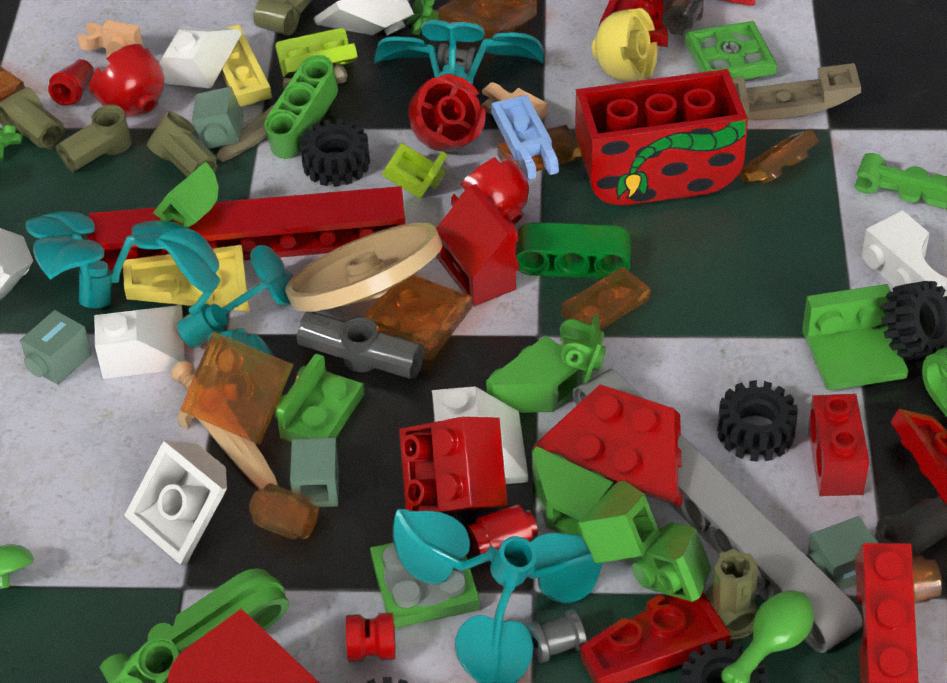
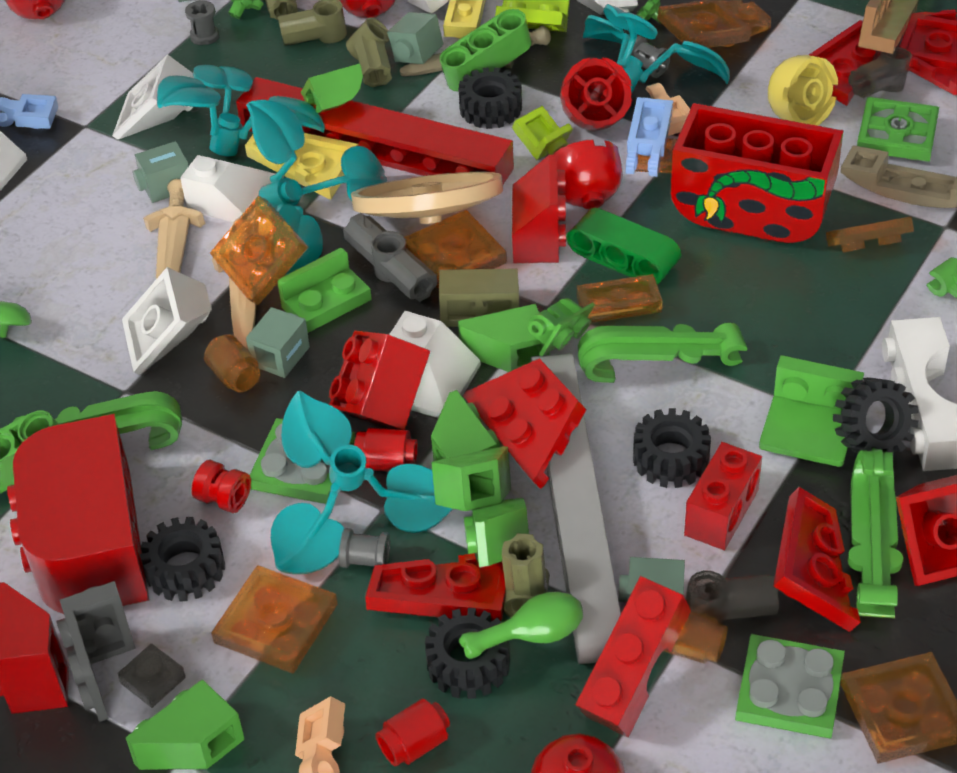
camera: 30 degrees right, 0 degrees up
(111, 408) = (173, 228): none -> tan sword
(475, 349) = (476, 293): none -> olive hinge
(675, 332) = (655, 344): none -> bright green piece

